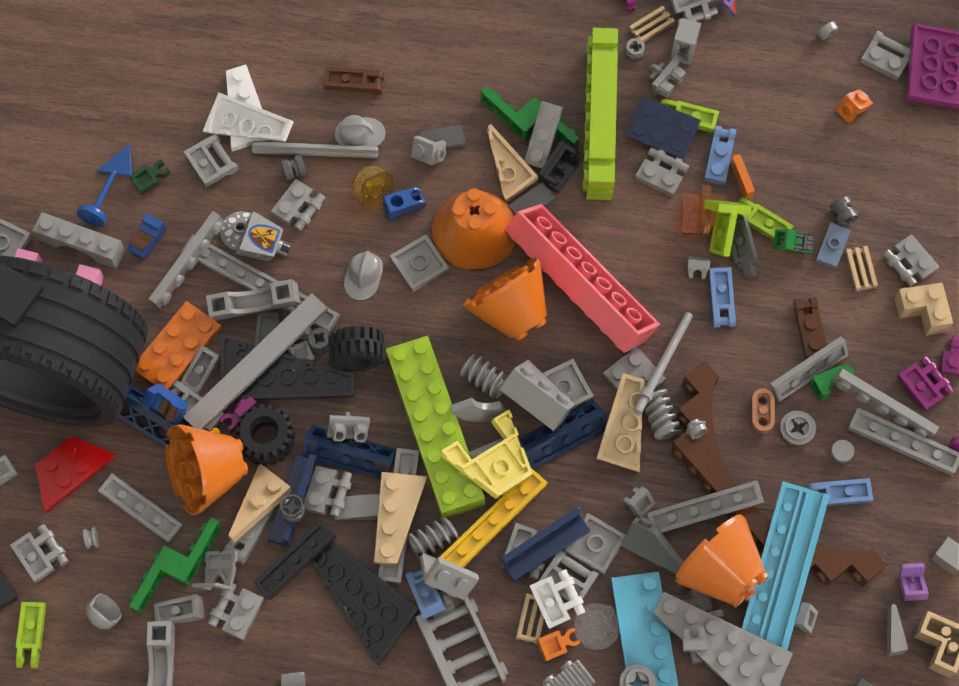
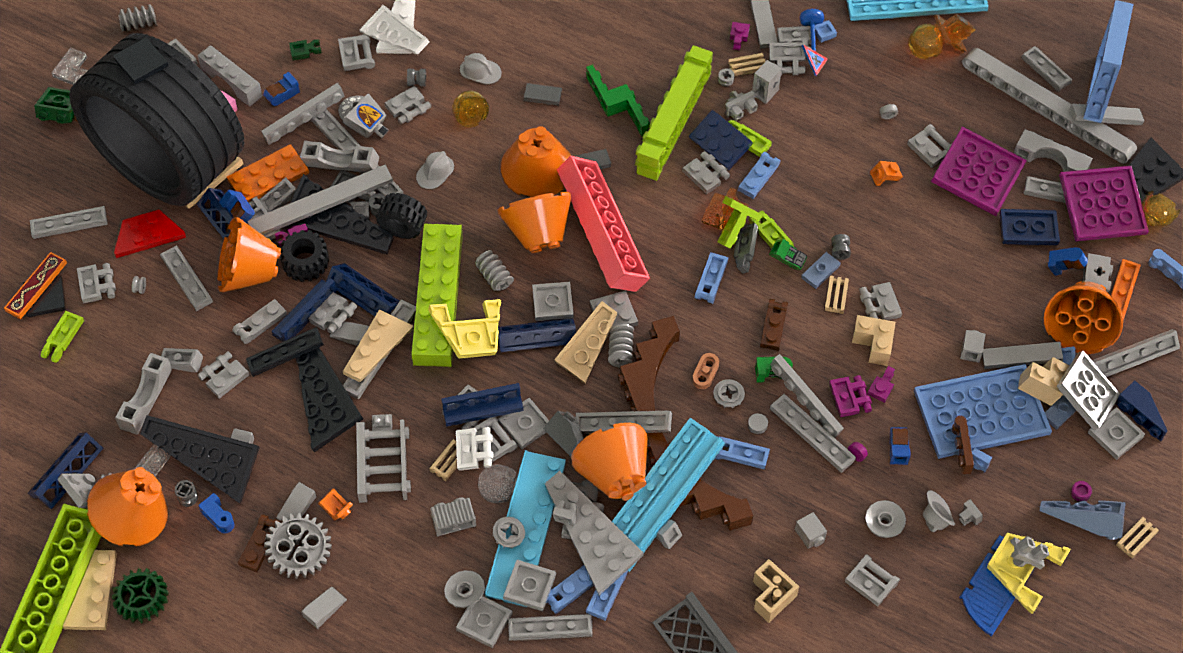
camera: 20 degrees right, 10 degrees down
(103, 612) = (122, 338): light grey hair -> none
(117, 165) = (248, 60): blue piece -> none
(174, 566) = (192, 325): green bracket -> none
(218, 565) = (225, 336): light grey piece -> none
(262, 496) = (280, 298): tan wing -> none
(292, 503) = (297, 309): dark grey wheel -> none
(315, 149) = (439, 70): light grey axle -> none
(348, 427) = (369, 271): light grey hips -> none
(353, 80) = (492, 31): reddish brown plate -> none
(403, 203) = (489, 128): blue leg -> none
(419, 263) = (482, 176): light grey tile -> none
(425, 596) = (372, 407): medium blue plate -> none
(428, 151) = (526, 97): light grey bracket -> none
(432, 537) = (397, 372): light grey piece -> none
(447, 576) = (393, 399): light grey bracket -> none
(476, 411) = (473, 292): light grey tile -> none
(494, 520) = (449, 377): yellow tile -> none
(511, 169) = (586, 132): tan wing -> none
(537, 395) = (526, 294): light grey wedge -> none
(543, 134) = (621, 113): light grey plate -> none
(554, 644) = (456, 483): orange plate -> none
(559, 167) = (623, 142): black hinge -> none
(640, 502) = (575, 403): light grey tile -> none
(647, 393) = (613, 321): light grey bar -> none
(696, 429) = (641, 361): light grey plate -> none
(698, 263) = (702, 246): light grey tile -> none
(742, 177) = (768, 195): orange tile -> none
(810, 367) = (747, 354): light grey tile -> none
(895, 635) = (734, 578): light grey slope -> none
(913, 582) = (770, 538): medium lavender bracket -> none

